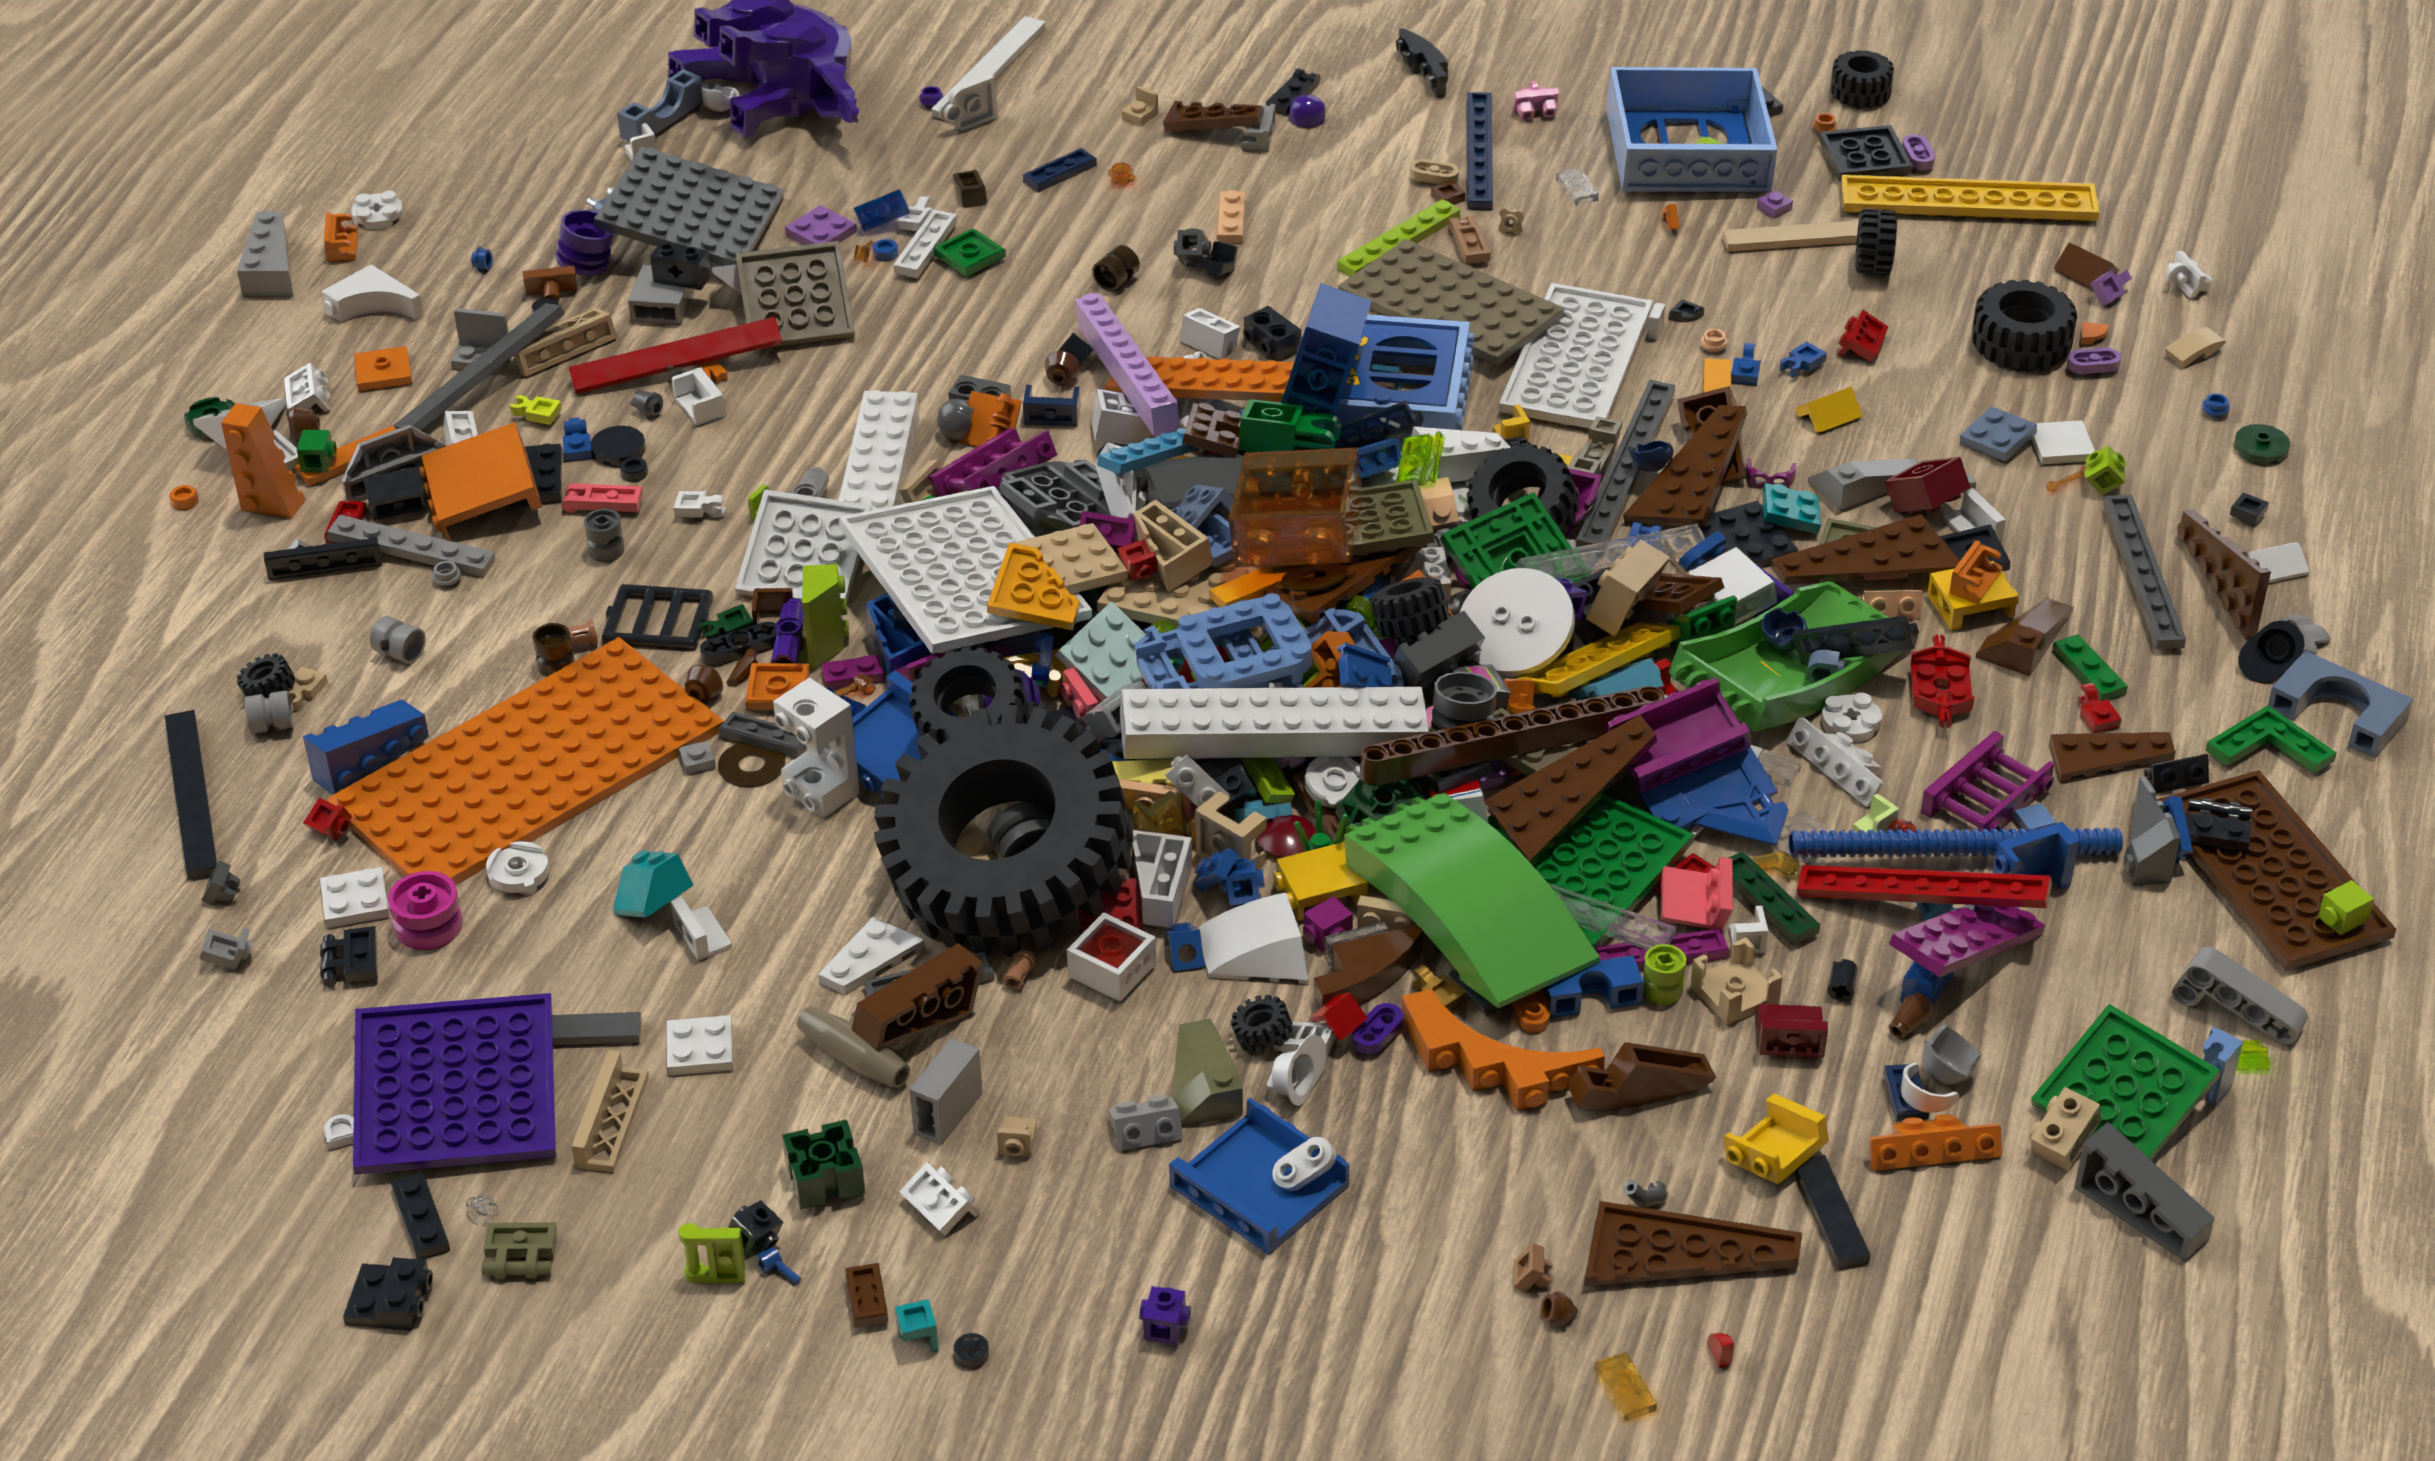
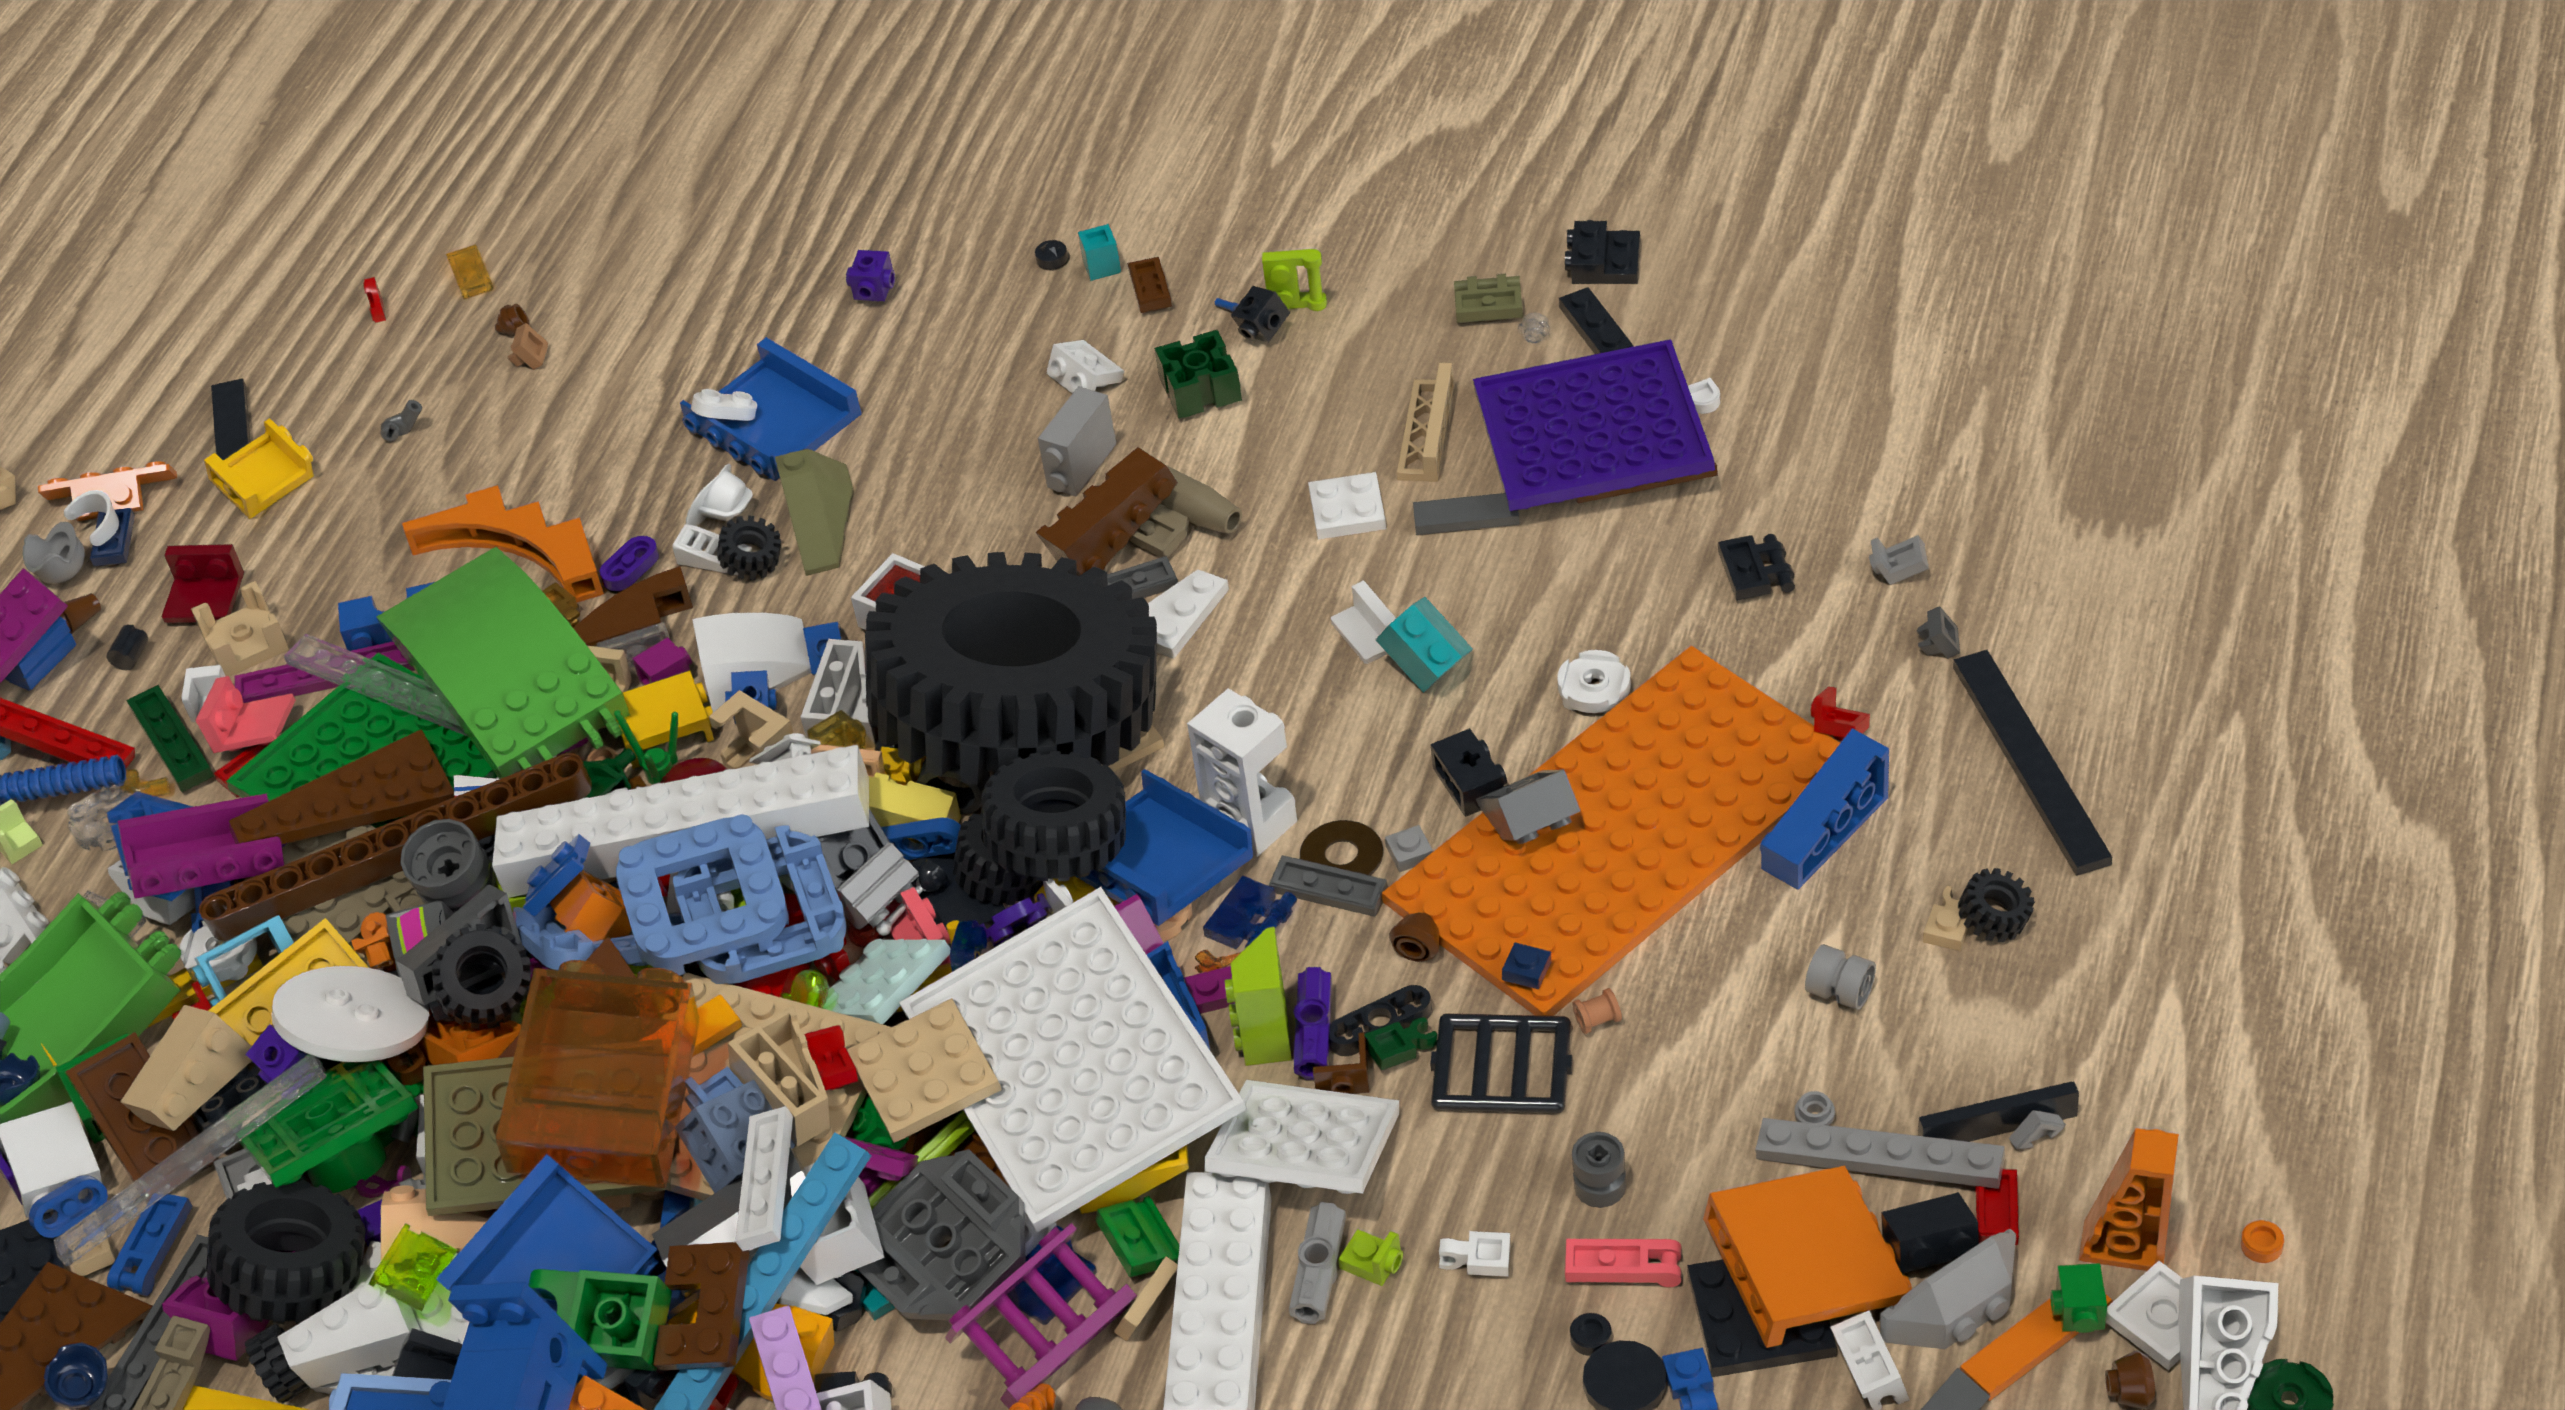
camera: 175 degrees left, 5 degrees up
(269, 712) = (1981, 846): light grey wheel -> none
(354, 897) = (1778, 642): white plate -> none
(425, 910) = (1682, 607): dark pink wheel -> none
(553, 648) = (1623, 967): dark brown wheel -> none
(596, 749) = (1530, 805): none -> slope
(624, 652) = (1526, 965): none -> dark blue plate
(637, 799) = (1466, 769): none -> black brick
(742, 667) = (1369, 983): reddish brown bar -> none
(771, 681) = (1322, 943): orange plate -> none
(1017, 1136) = (1009, 433): tan bracket -> none
(1032, 590) = (972, 977): light orange plate -> none
(1146, 1122) = (879, 456): light grey bracket -> none
(1172, 460) = (764, 1179): none -> white plate
(1214, 869) = (777, 692): blue plate -> none
(1341, 1015) = (668, 552): red panel -> none
(1640, 1077) = (368, 518): reddish brown slope -> none
(1660, 1245) = (384, 380): reddish brown wing -> none
(1664, 974) = (314, 617): lime wheel -> none

